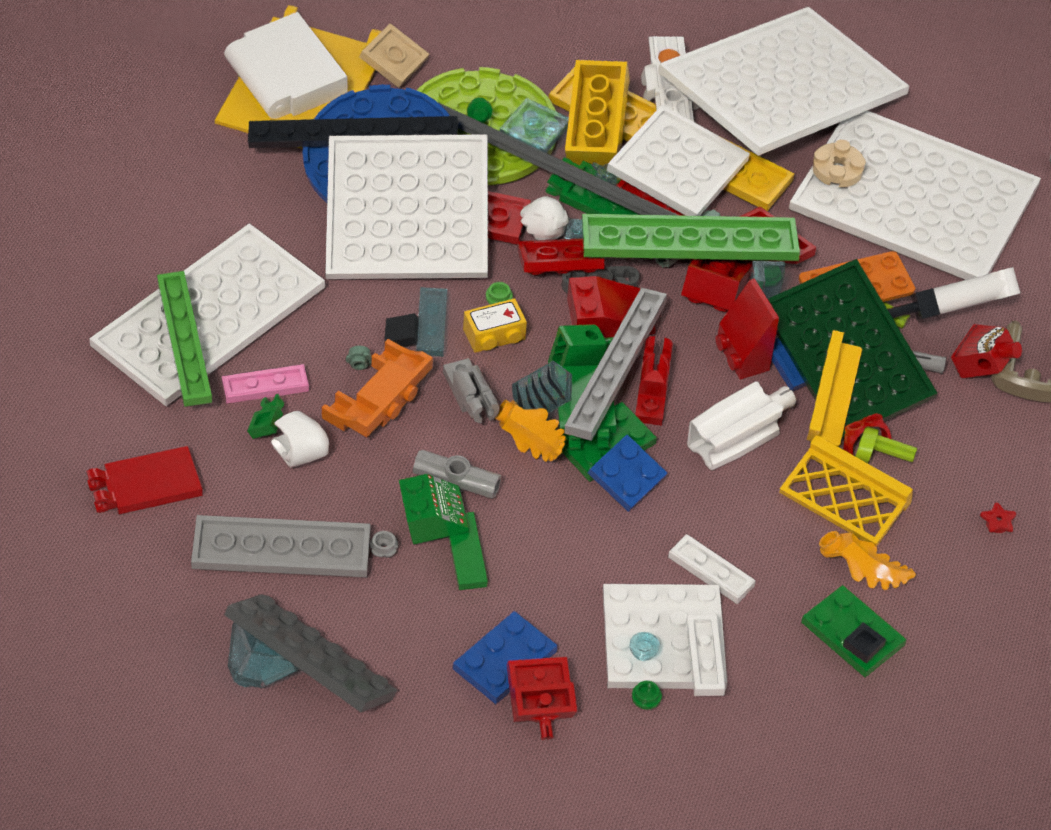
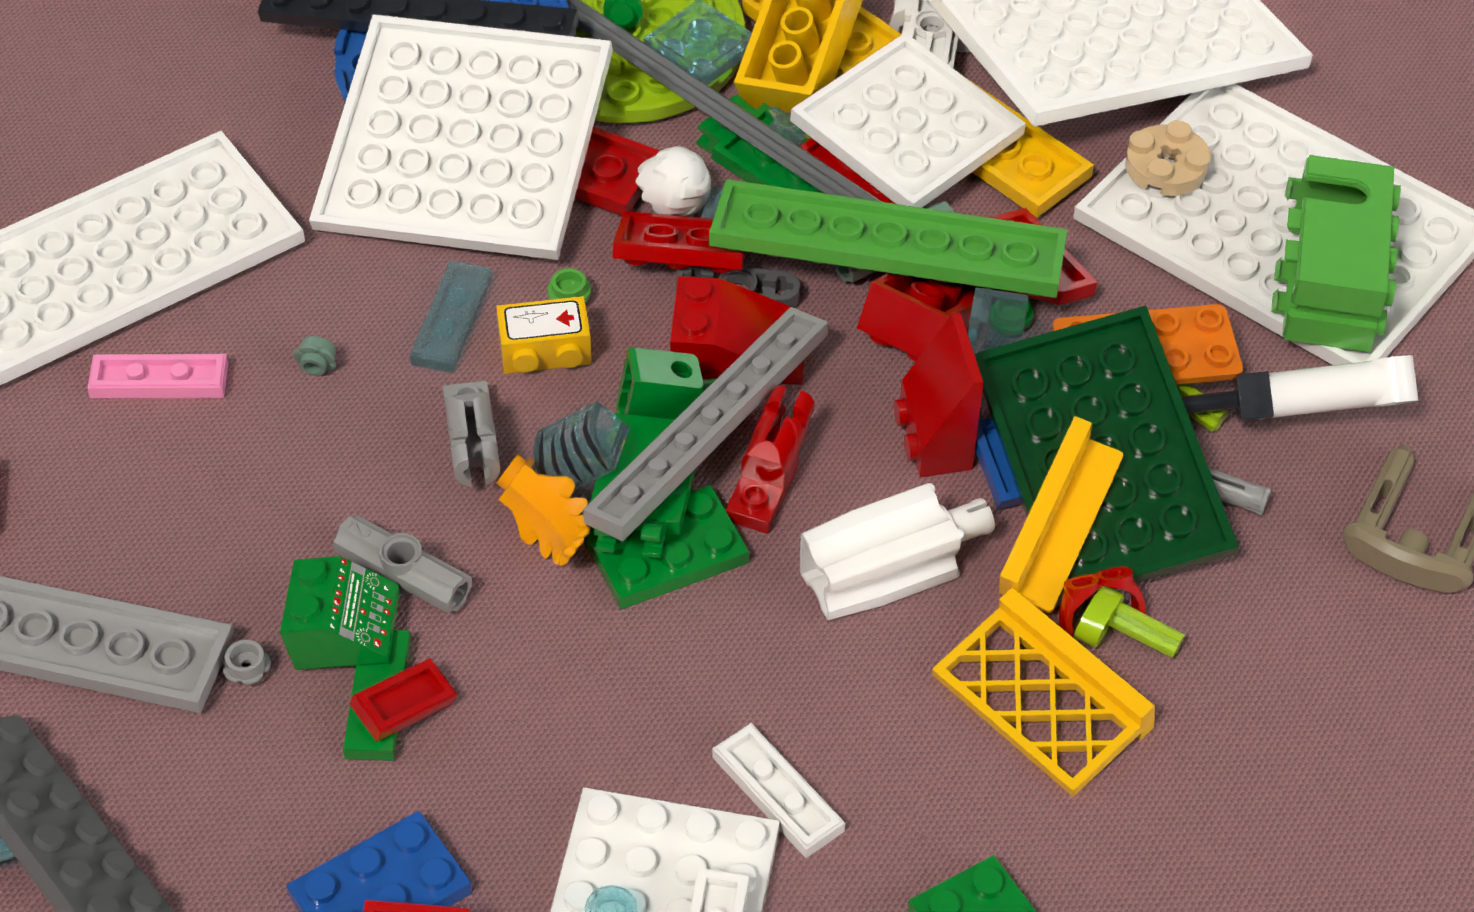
camera: 15 degrees right, 0 degrees up
(184, 339) = (47, 290): bright green plate -> none
(264, 420) = (133, 433): green plate -> none
(302, 439) = (170, 469): white piece -> none
(384, 393) = (329, 415): orange bracket -> none
(402, 329) = (396, 323): black piece -> none
(485, 550) = (403, 699): none -> red tile
(627, 473) = (681, 604): blue plate -> none
(865, 560) = (1044, 818): light orange plant -> none
(960, 222) = (1342, 255): none -> bright green piece
(985, 351) = (1338, 489): red torso -> none
(995, 525) = (1296, 792): red plate -> none

